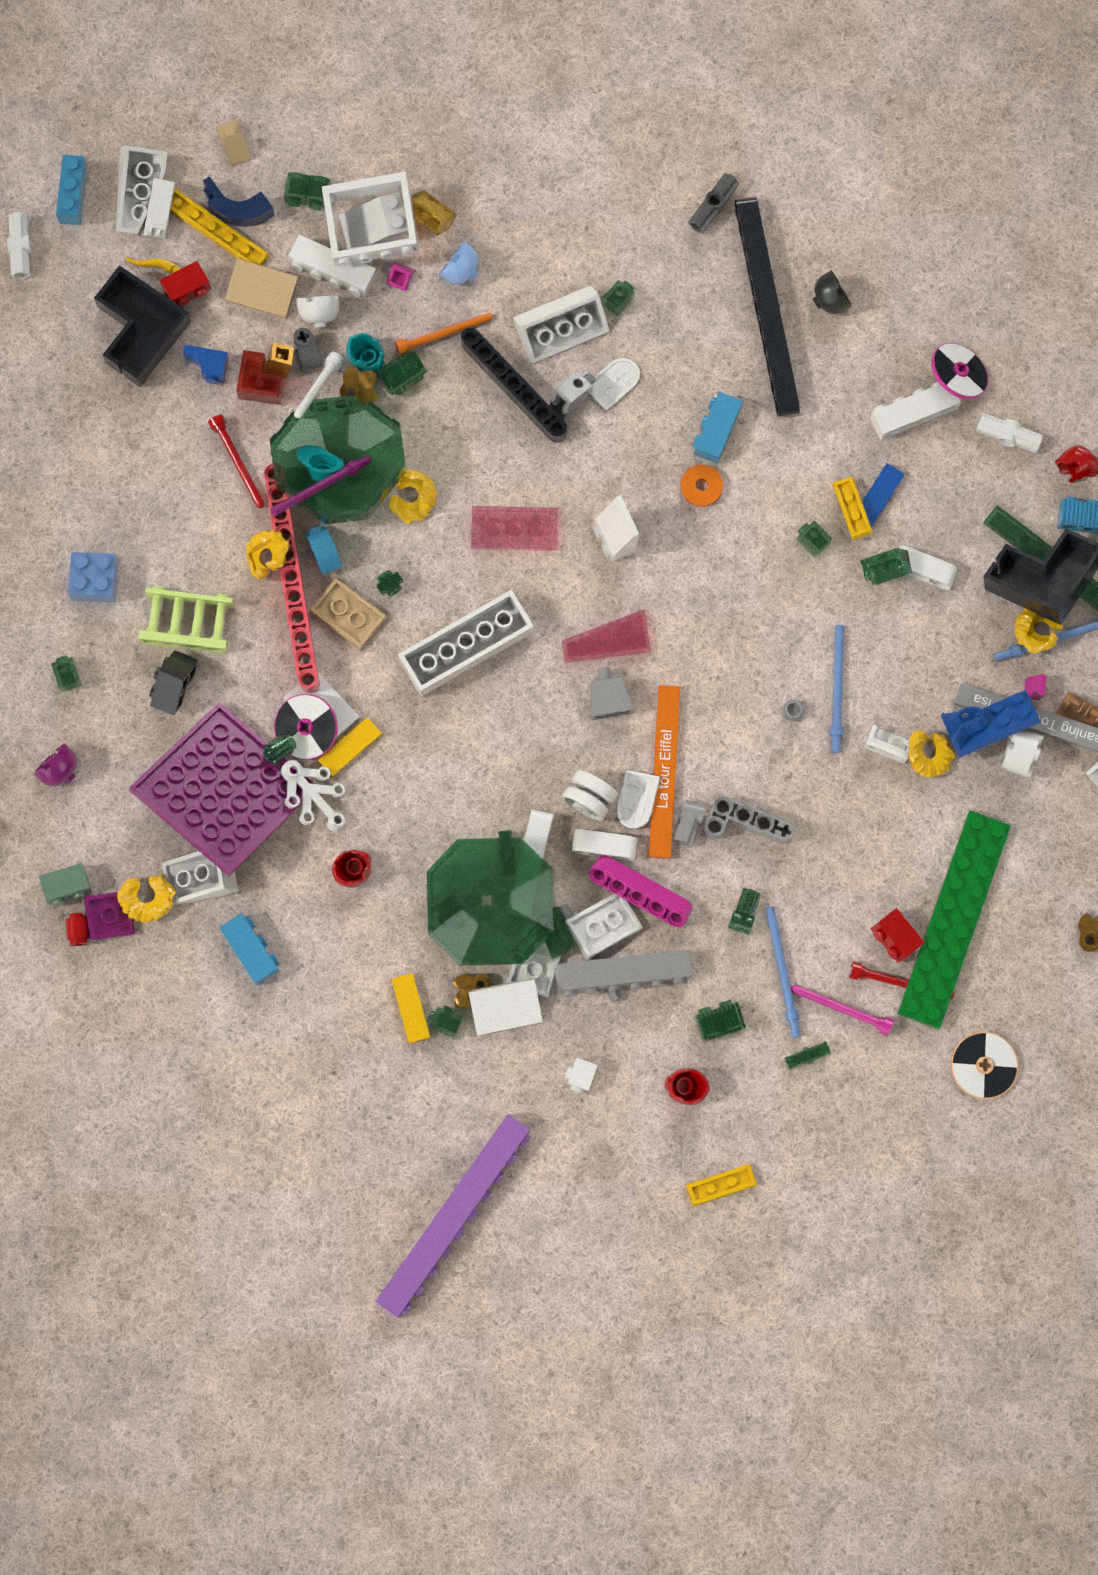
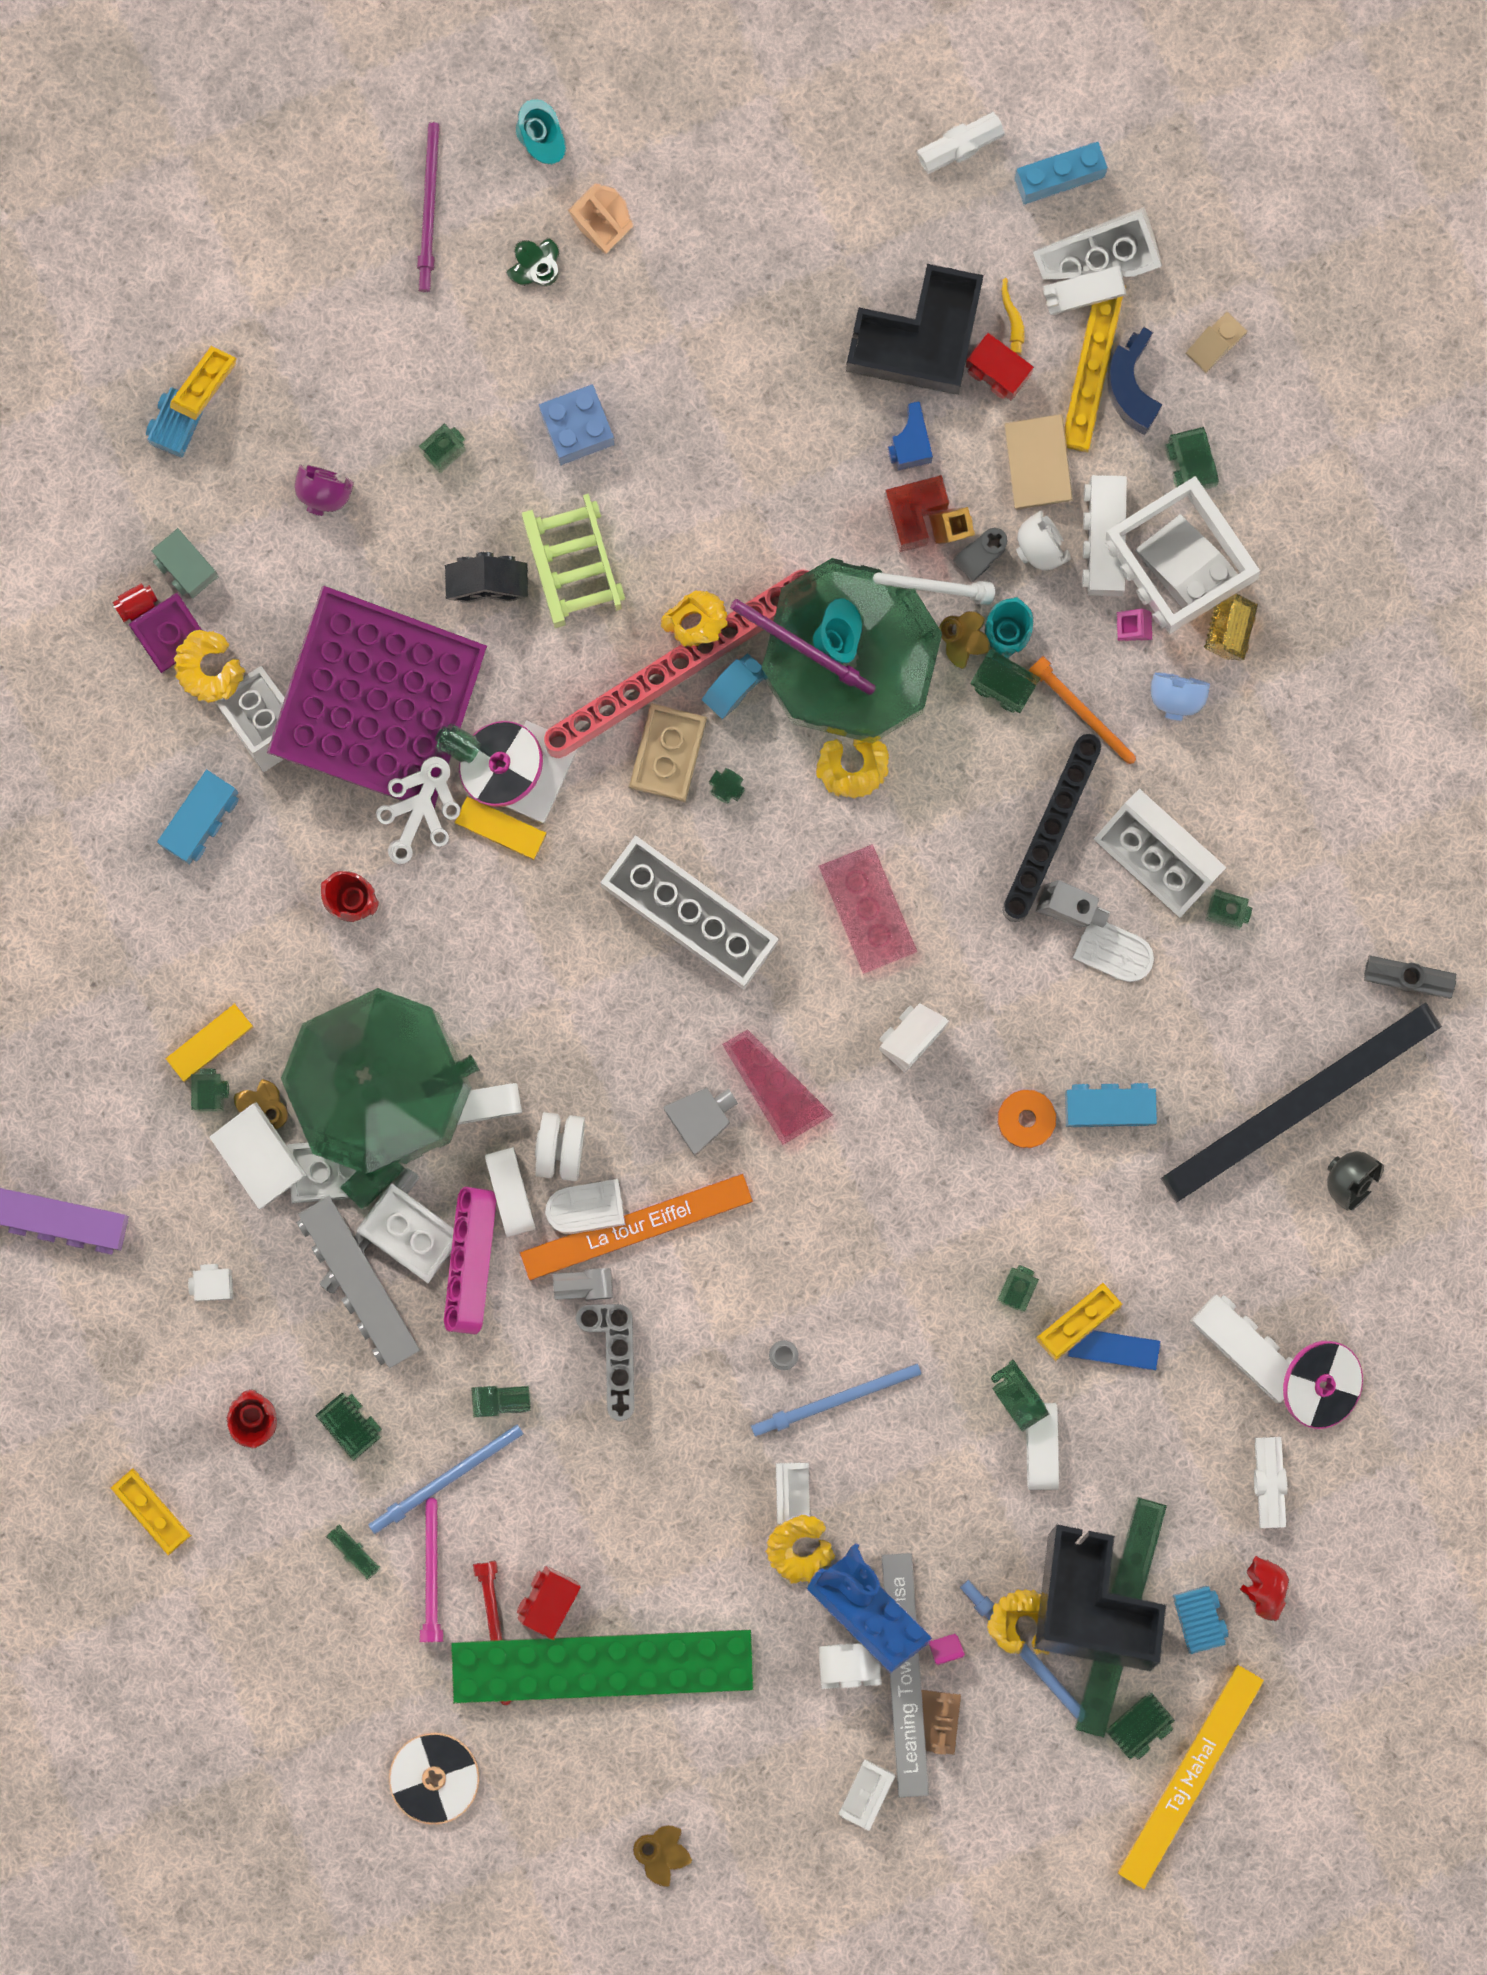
camera: 70 degrees right, 5 degrees up
(218, 425) = (837, 489): red piece -> none

